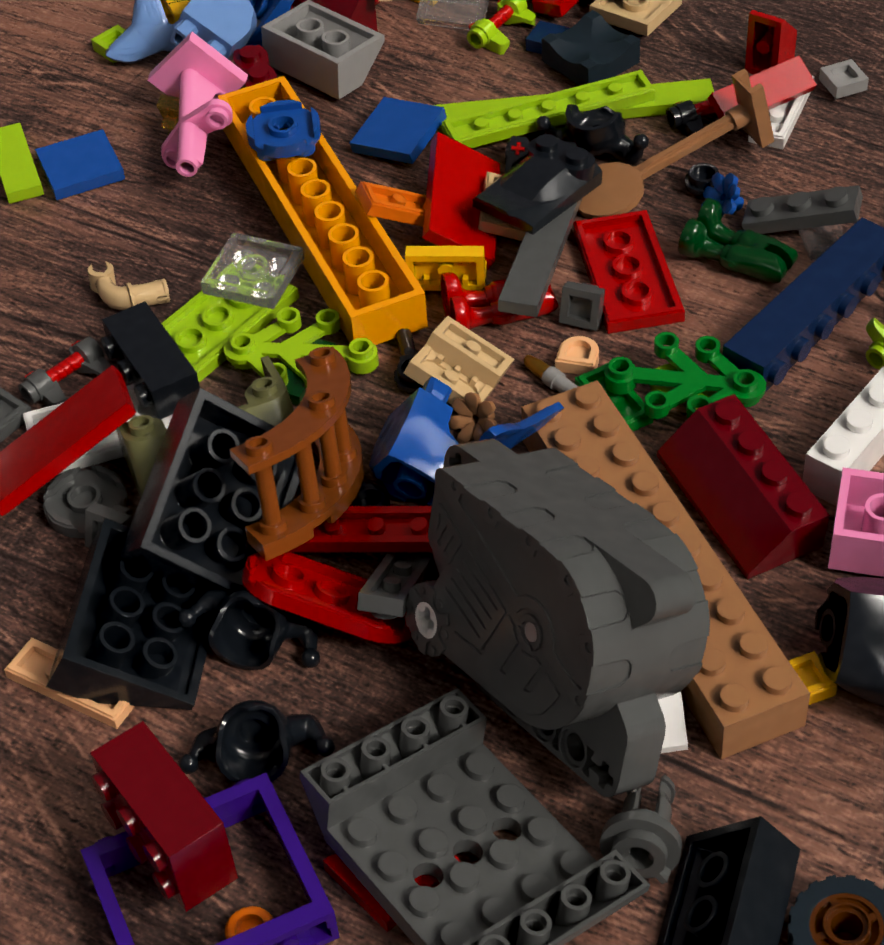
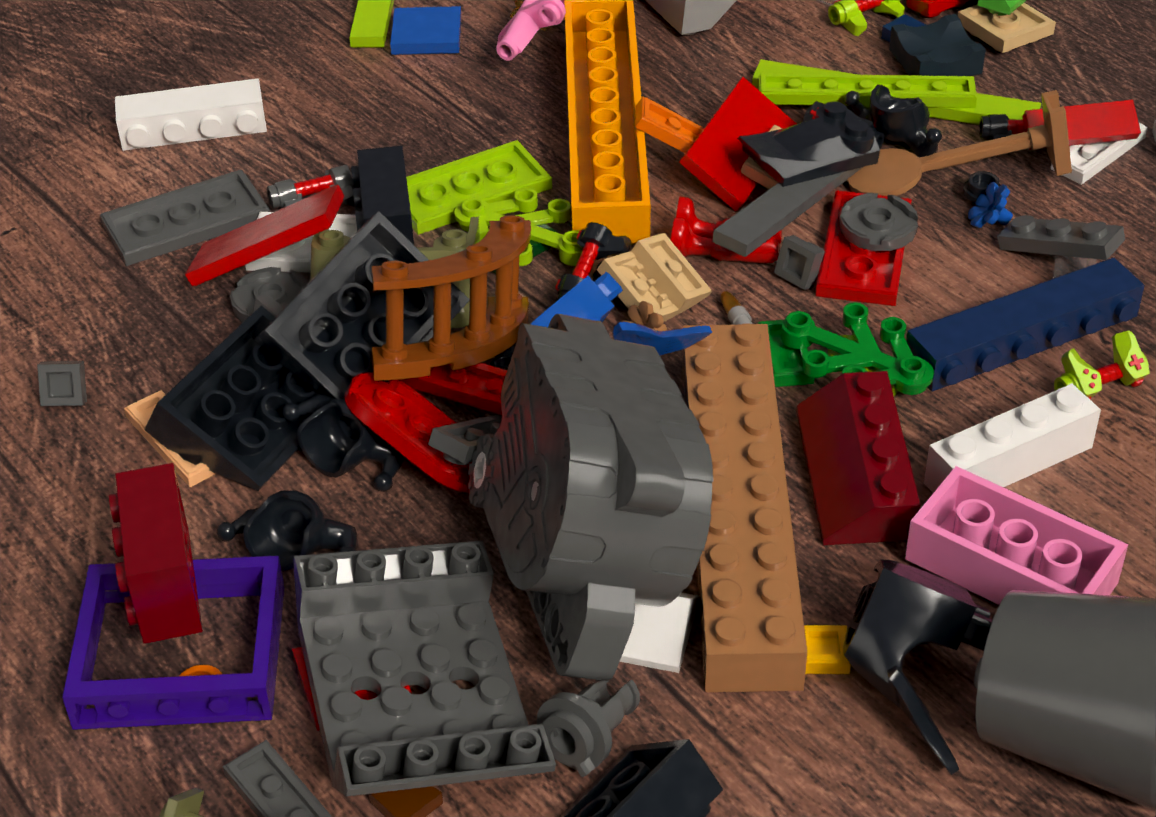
camera: 20 degrees right, 5 degrees down
(129, 295) = (391, 135): tan piece -> none
(252, 270) = (516, 150): clear plate -> none
(297, 140) = (601, 39): blue plate -> none
(387, 346) = (596, 243): none -> black piece
(398, 130) = (717, 71): blue tile -> none
(430, 262) = (706, 193): yellow bracket -> none
(577, 355) = (772, 304): light nougat tile -> none
(632, 243) = (878, 222): none -> dark grey tile
(736, 251) = (980, 258): dark green piece -> none
(768, 42) = (1113, 79): red slope -> none

